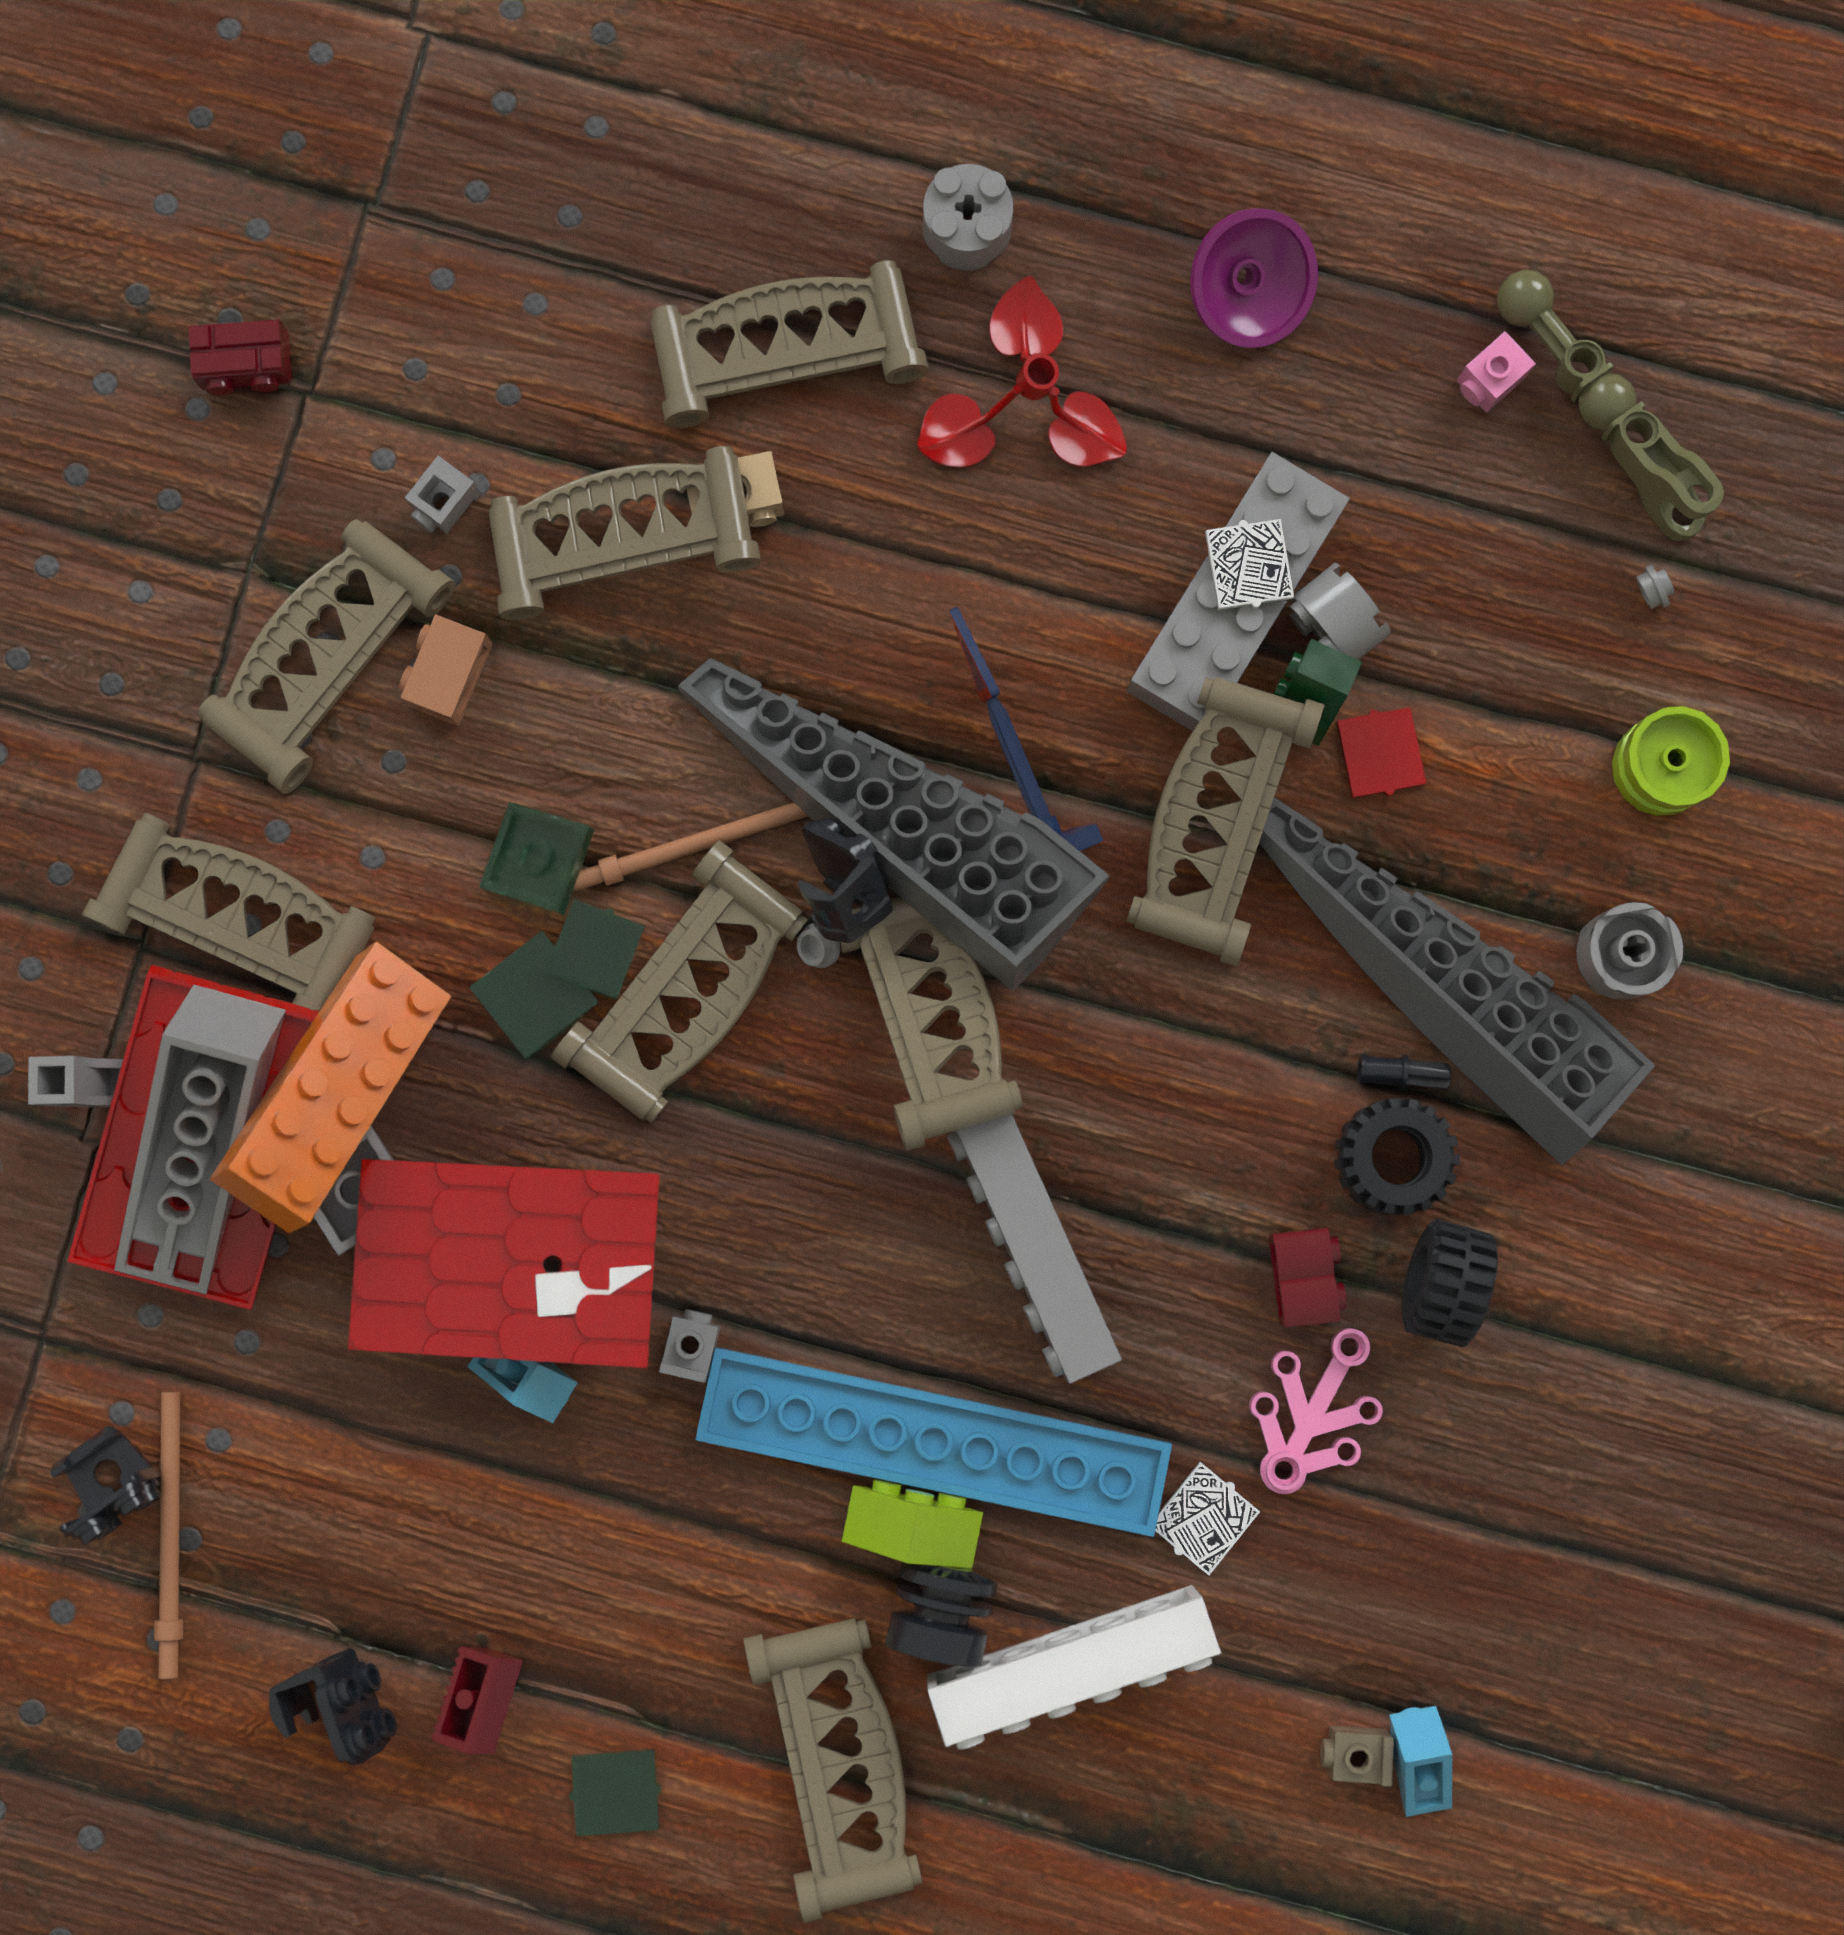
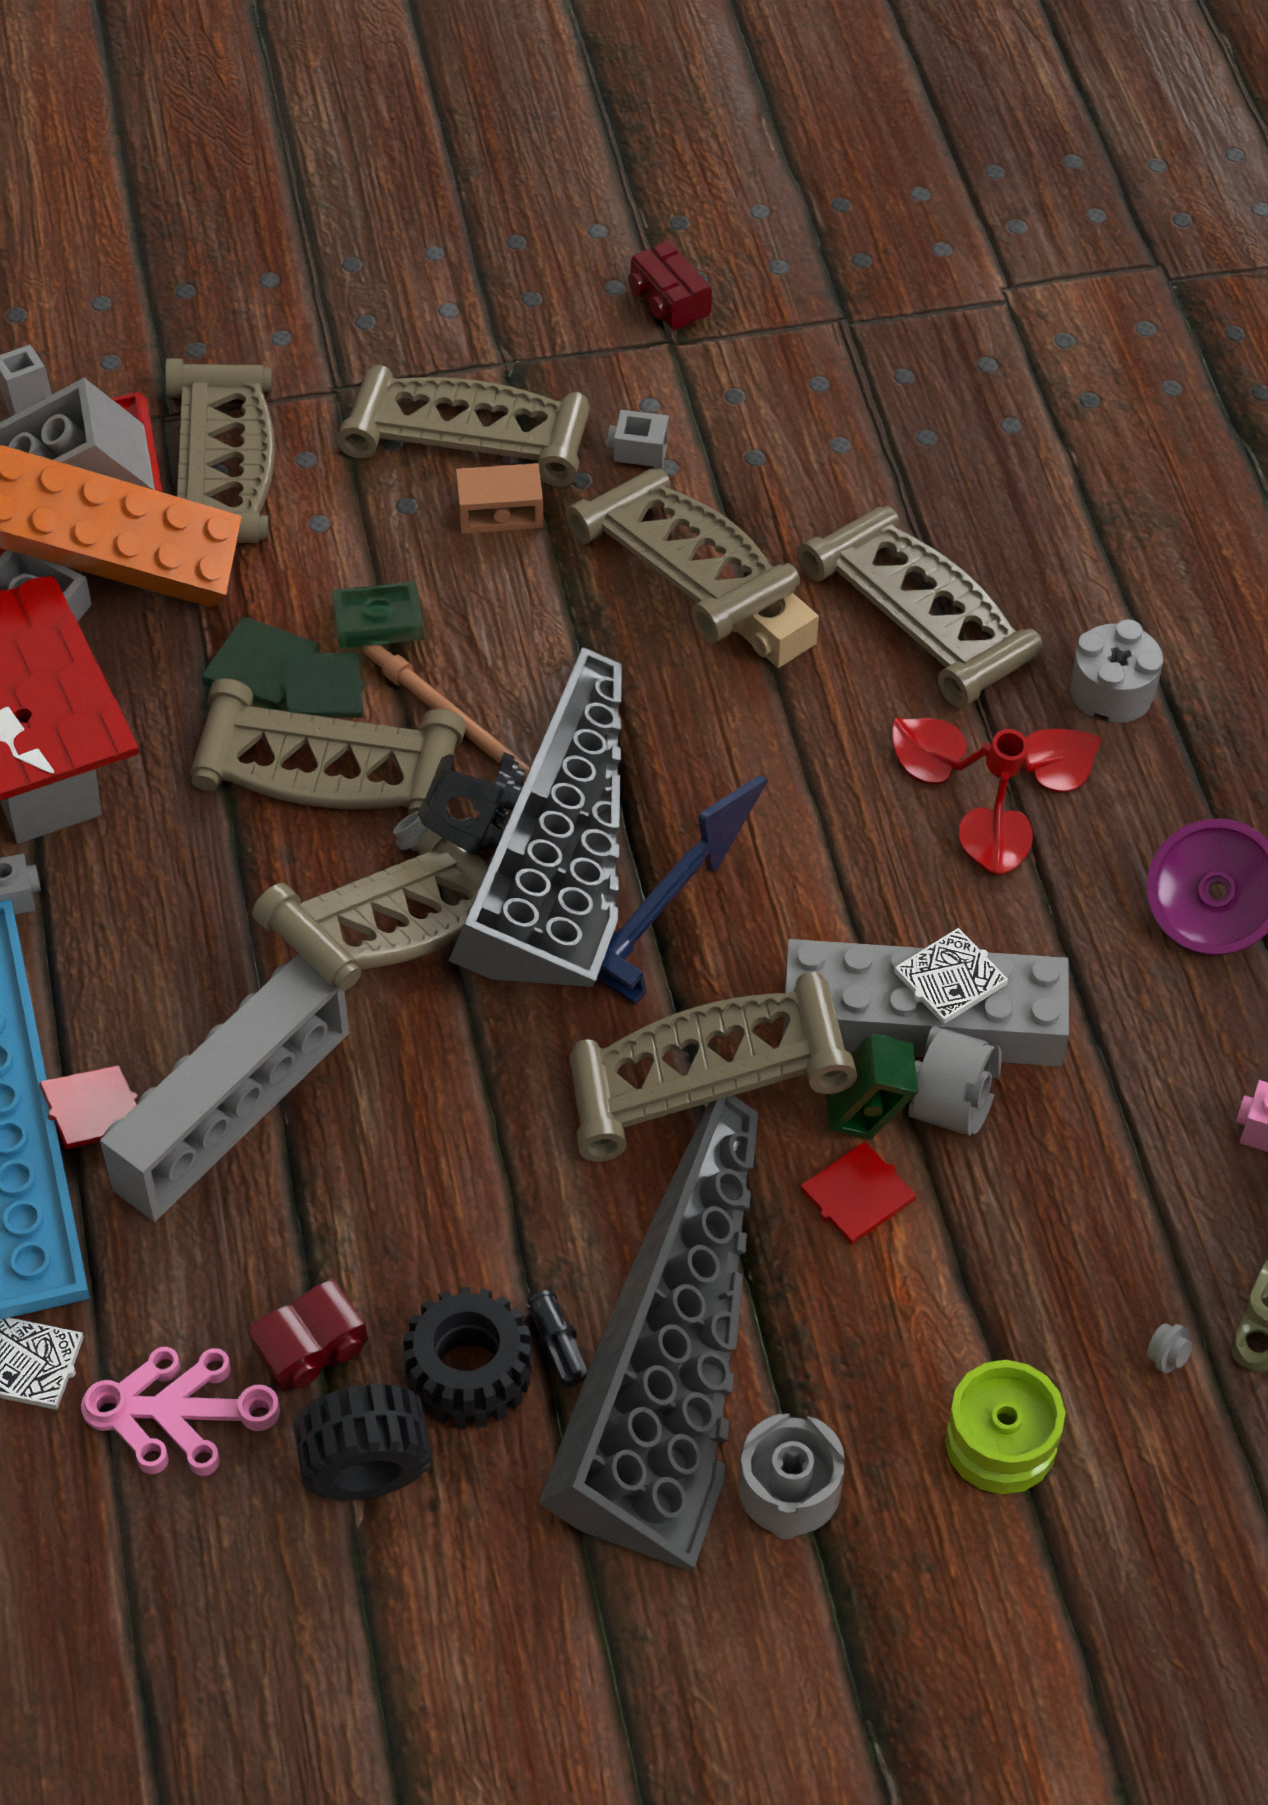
camera: 65 degrees right, 30 degrees down
(979, 1363) = (87, 1104): none -> piece

